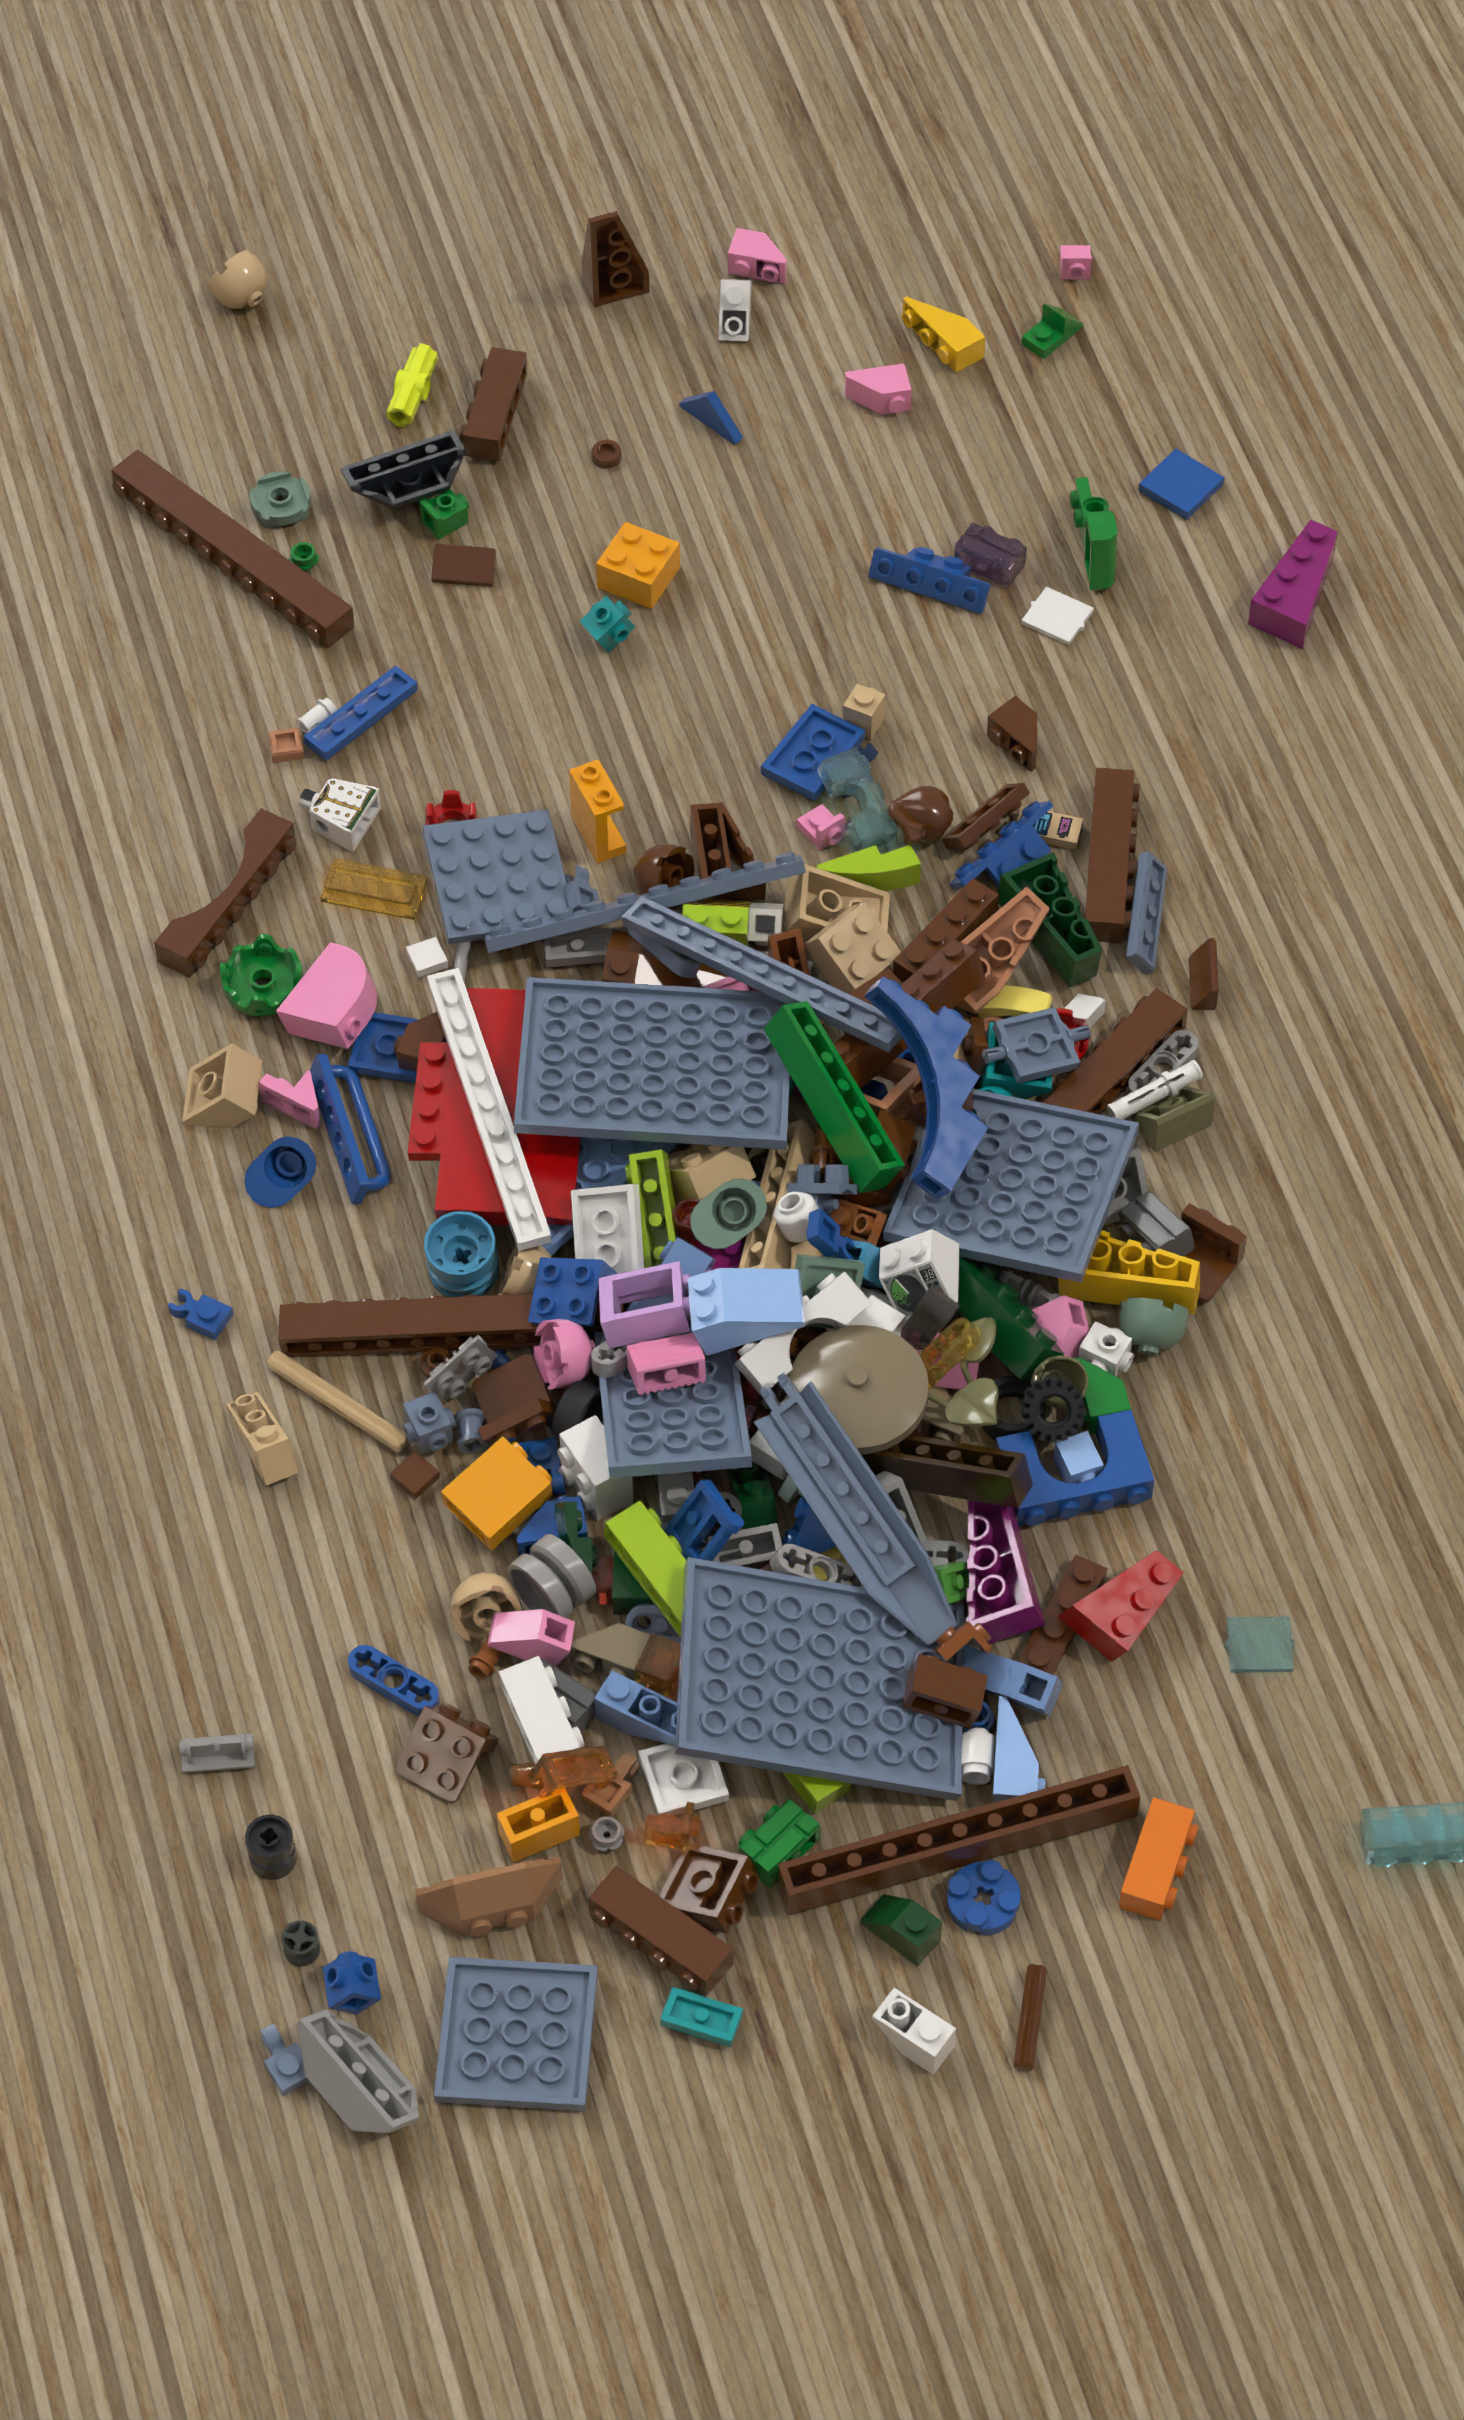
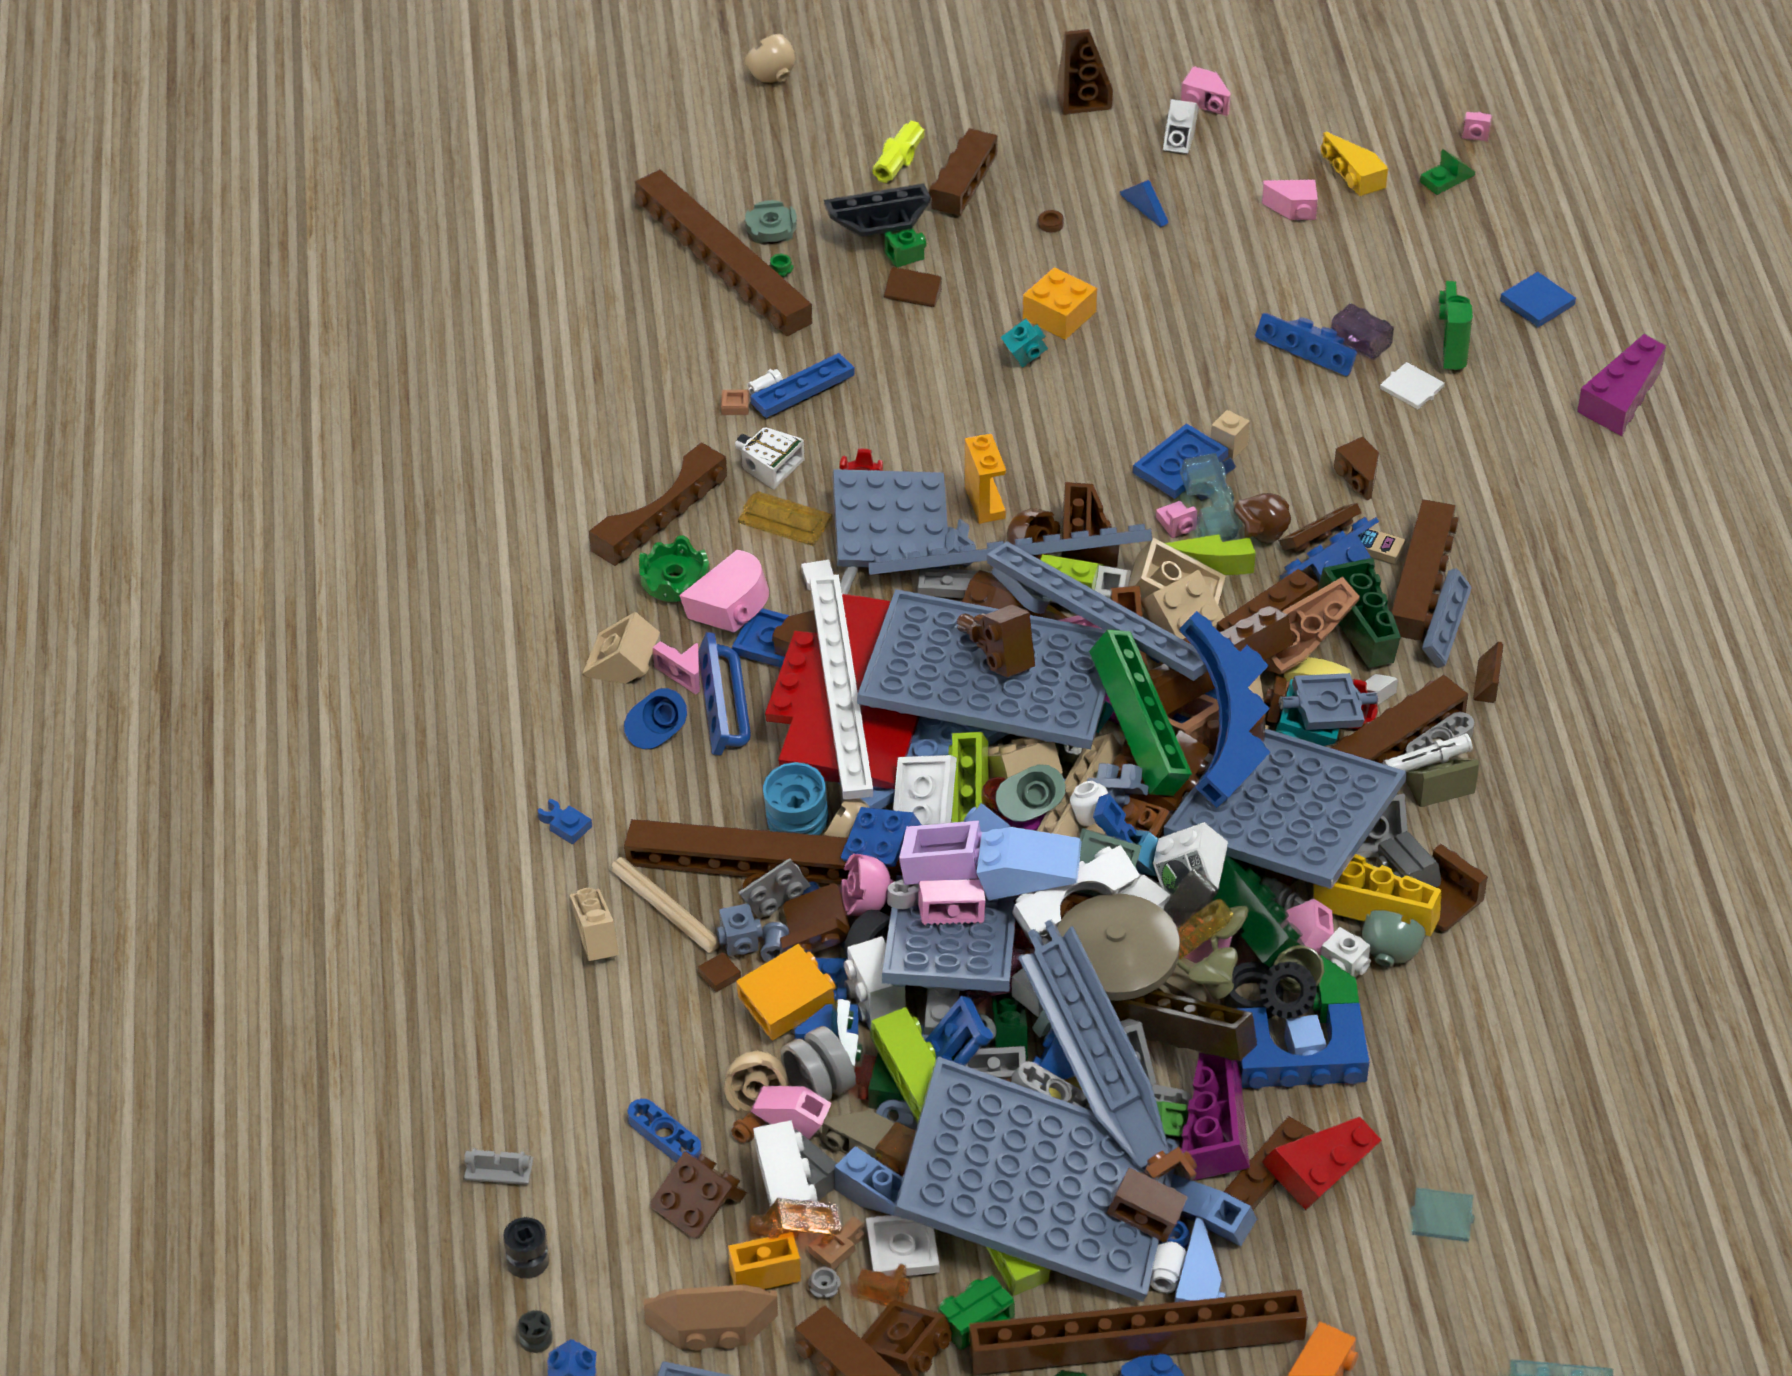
camera: 10 degrees right, 10 degrees down
(665, 1028) = (1004, 638): none -> reddish brown brick

